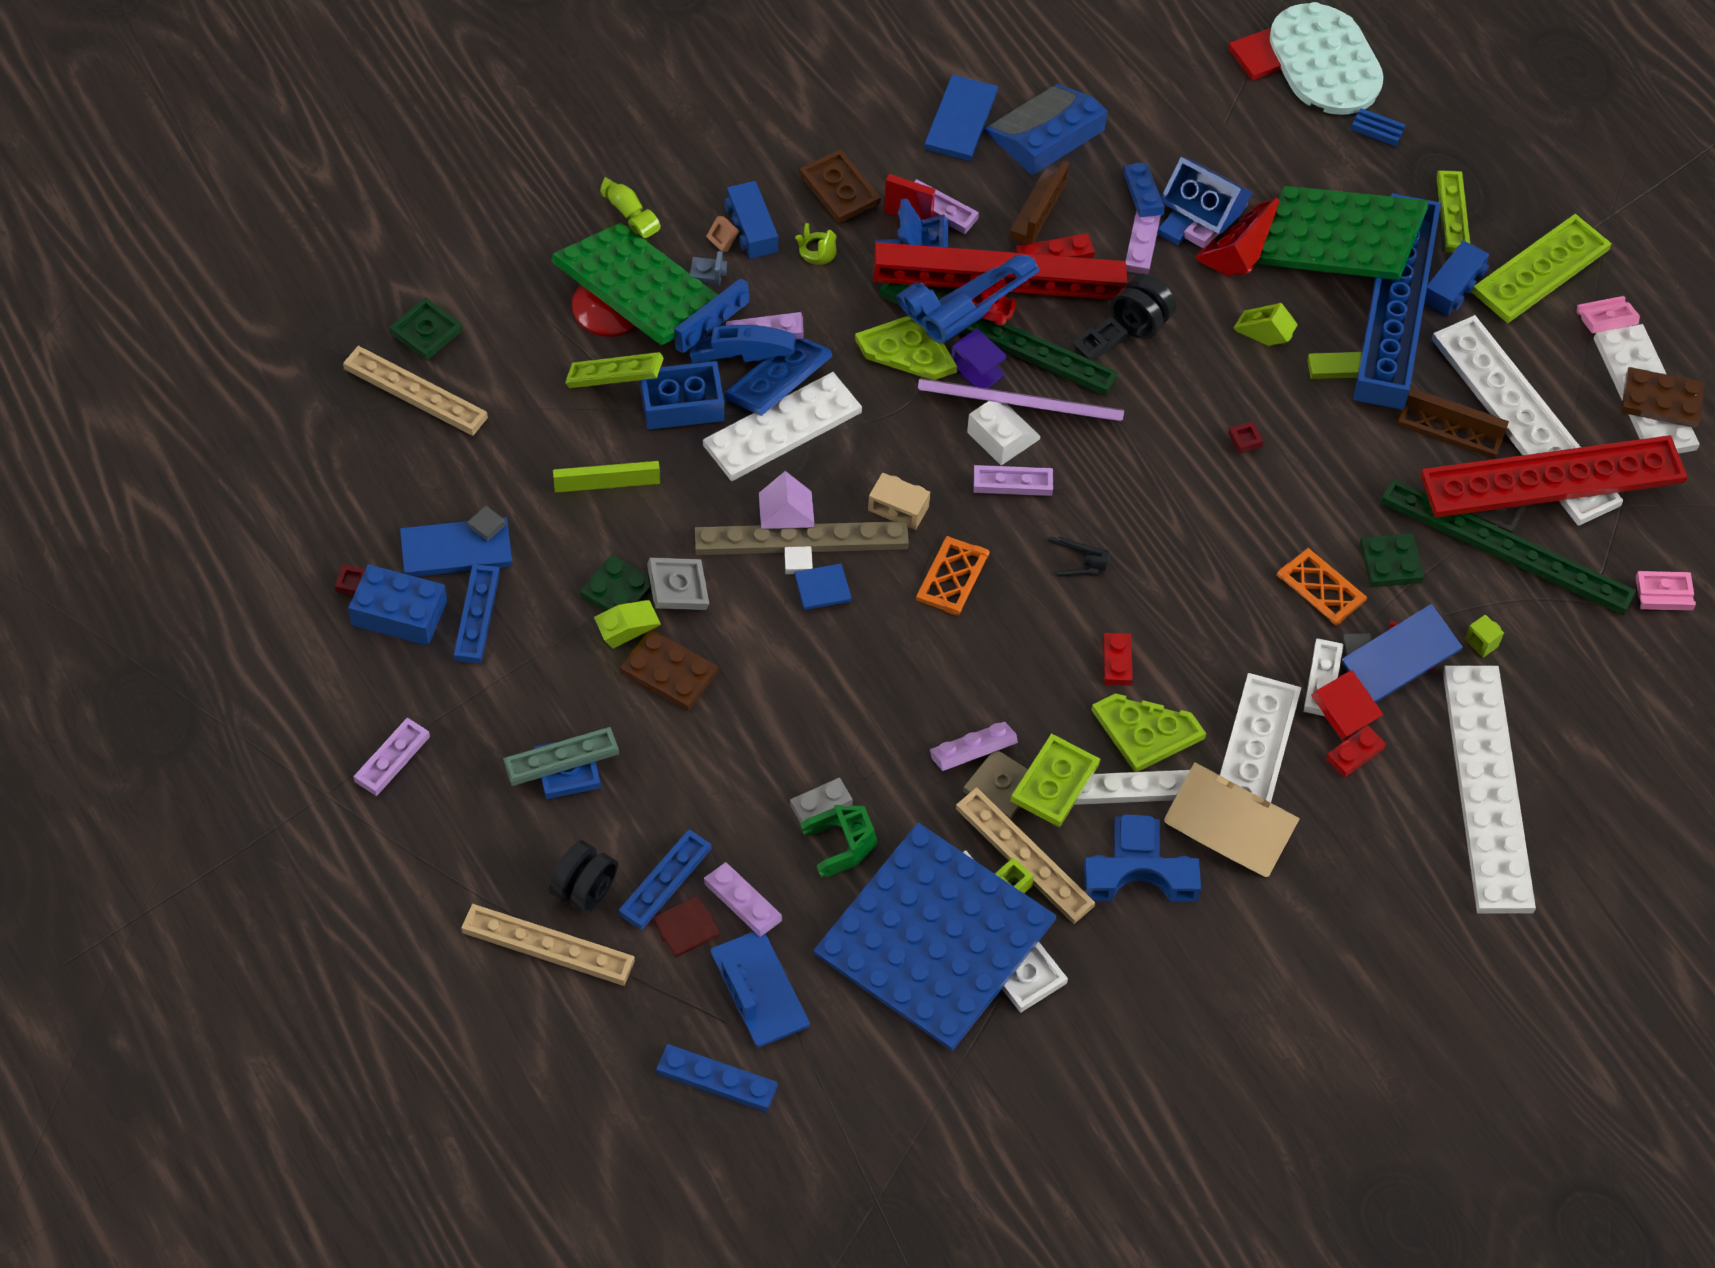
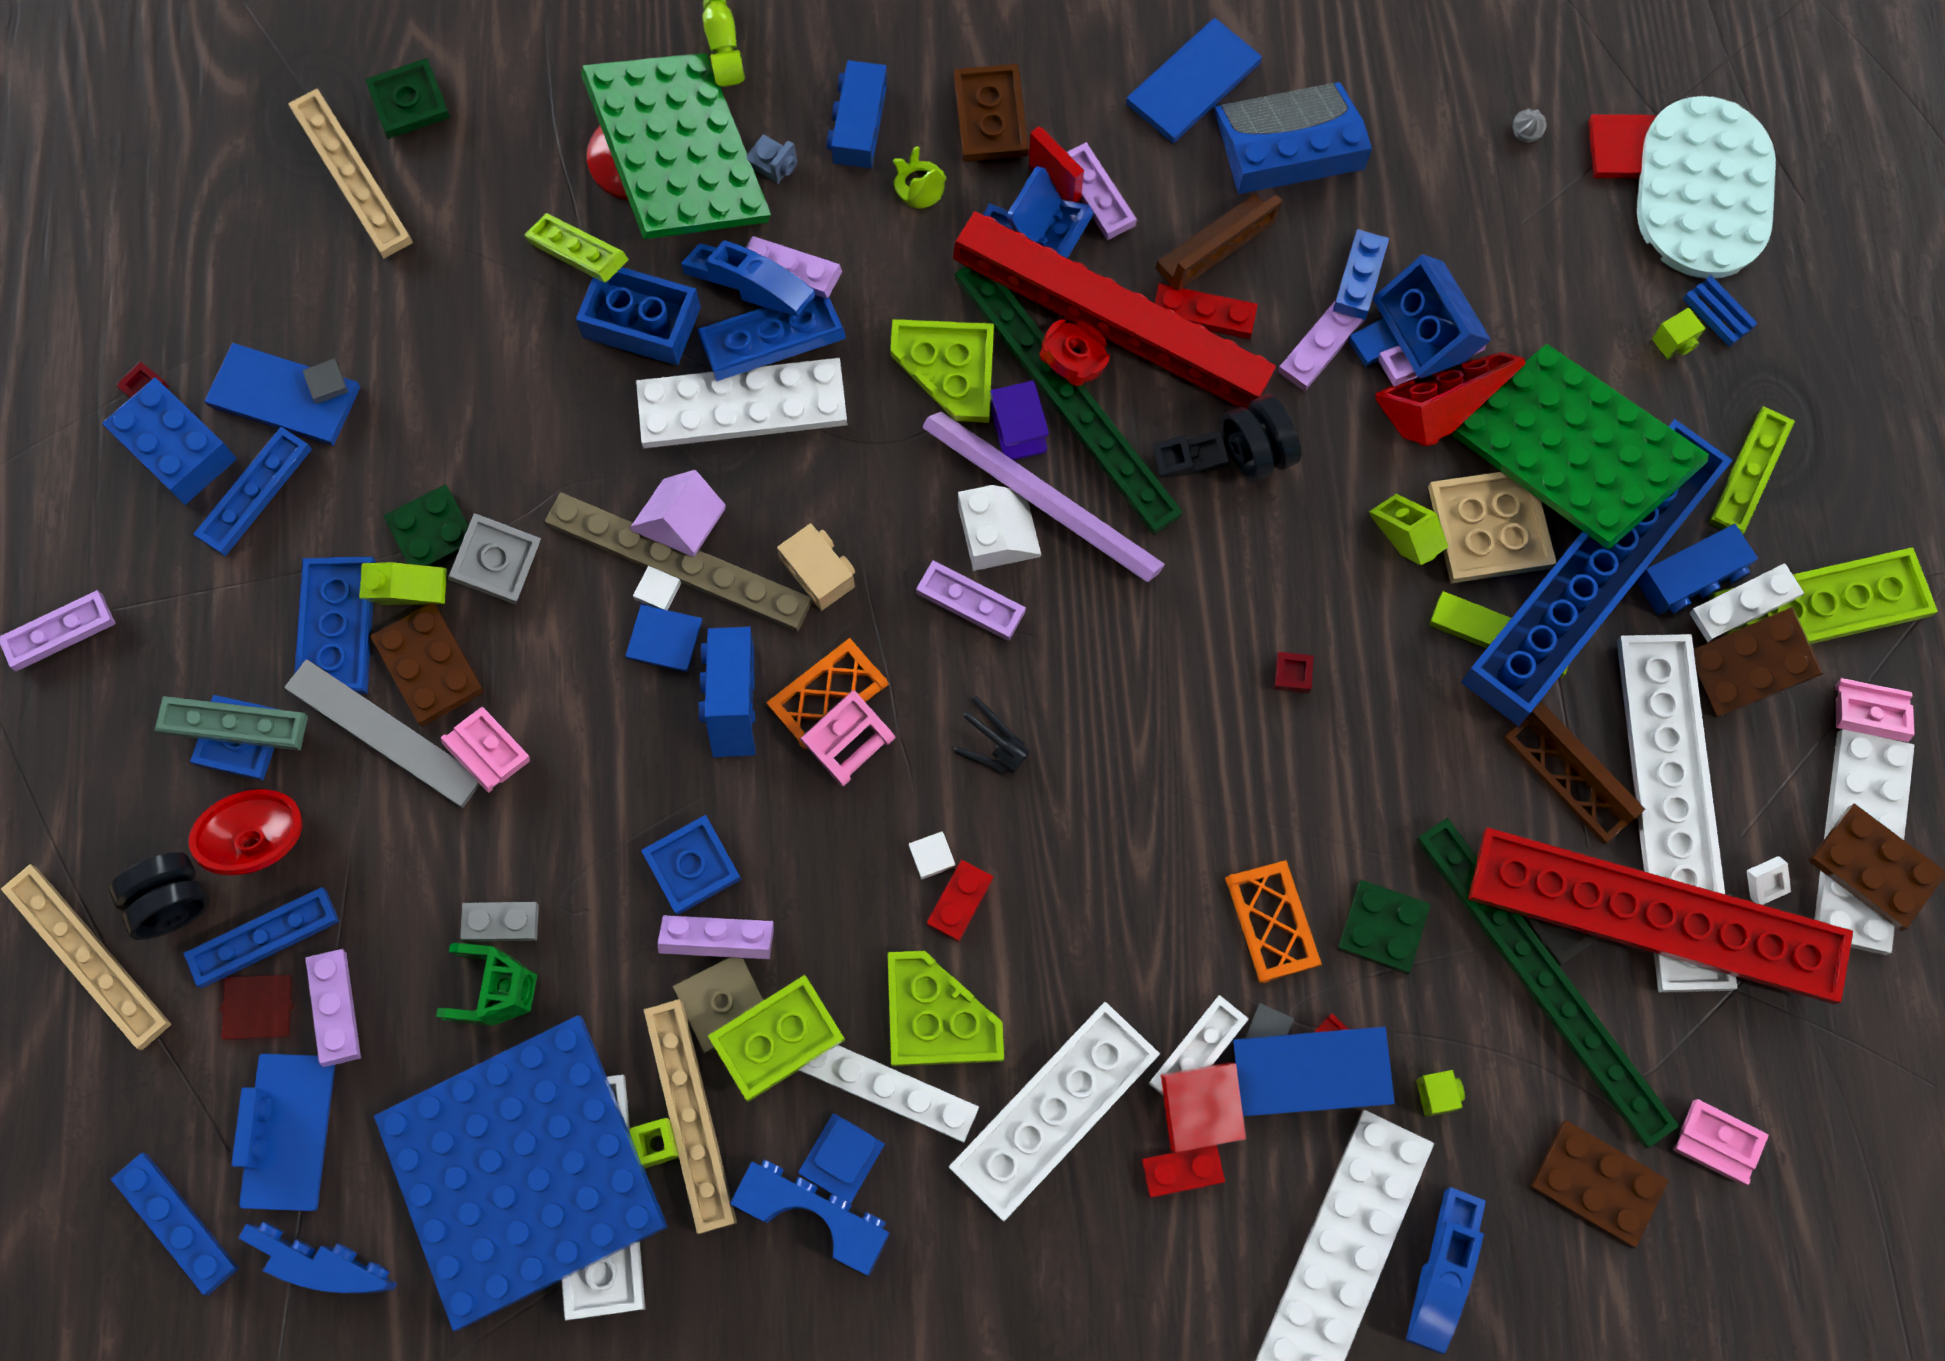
camera: 30 degrees right, 15 degrees up
(588, 674) = (334, 620): none -> blue tile
(606, 476) = (496, 380): lime tile -> none
(617, 815) = (245, 832): none -> red dish
(669, 720) = (383, 732): none -> light grey tile
(711, 315) = (733, 222): blue plate -> none
(722, 234) = (813, 118): nougat plate -> none
(746, 701) = (485, 749): none -> bright pink plate
(846, 1054) = (326, 1271): none -> blue slope
(892, 596) = (728, 691): none -> blue wedge
(929, 711) = (691, 865): none -> blue plate
(956, 311) = (1012, 345): blue panel -> none
(978, 588) = (841, 727): none -> bright pink plate
(1082, 640) = (932, 855): none -> white tile
(1194, 64) = (1529, 125): none -> light grey plate
(1231, 820) = (957, 1198): tan panel -> none
(1317, 303) = (1491, 527): none -> tan plate
(1362, 148) = (1679, 334): none -> lime plate
(1496, 283) = (1746, 602): none -> white plate
(1524, 312) = (1756, 662): none -> reddish brown plate
(1552, 730) = (1449, 1271): none -> blue slope
(1605, 431) = (1769, 880): none -> white plate
(1609, 646) = (1599, 1184): none -> reddish brown plate

